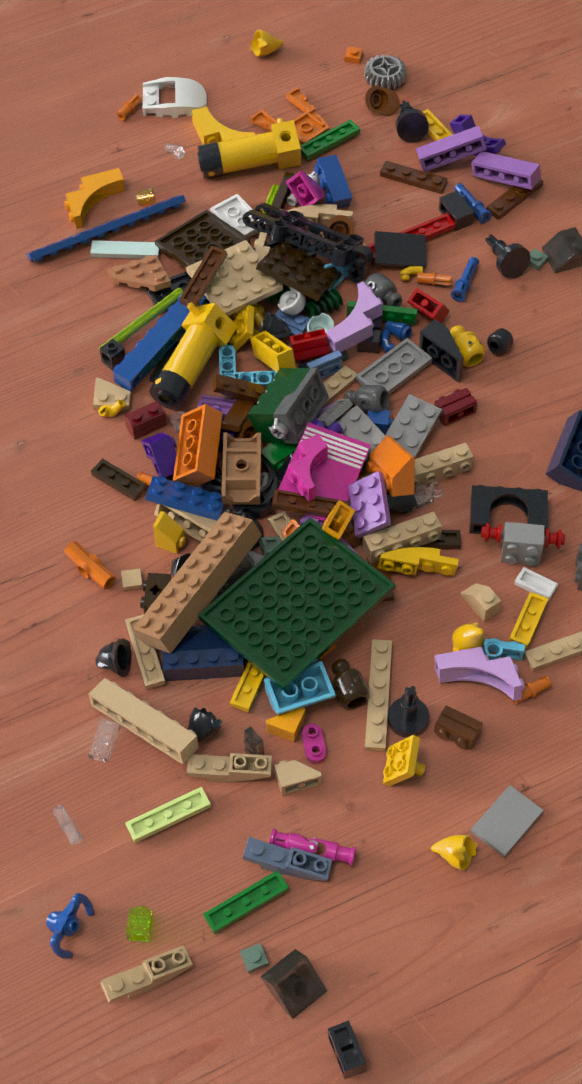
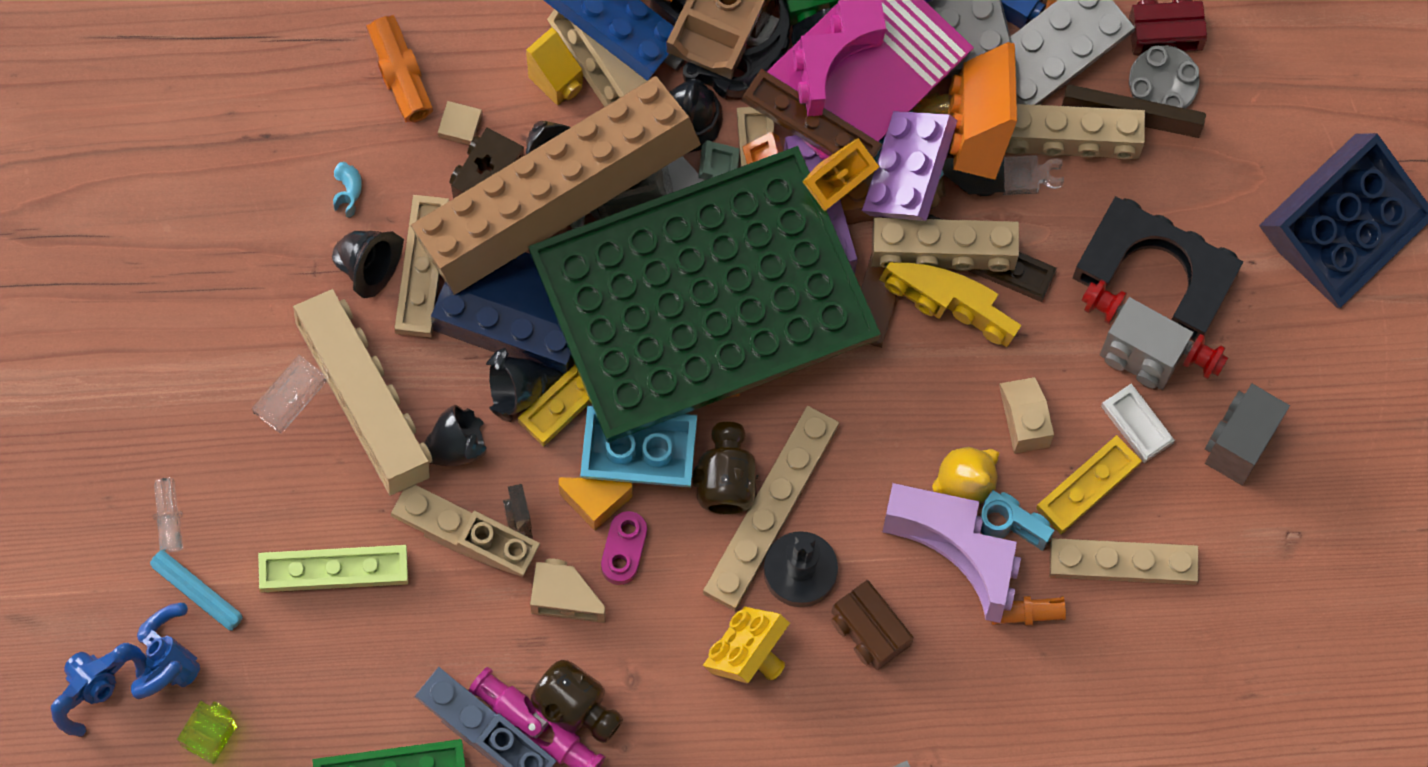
camera: 20 degrees right, 15 degrees up
(88, 626) = (352, 180): none -> medium azure arm
(99, 856) = (196, 590): none -> medium azure axle
(100, 894) = (166, 658): none -> blue piece
(220, 686) = (517, 383): none -> black hat
(326, 825) = (574, 700): none -> dark brown piece
(466, 429) = (1164, 77): none -> light grey dish
(475, 444) = (1157, 115): none -> dark brown tile

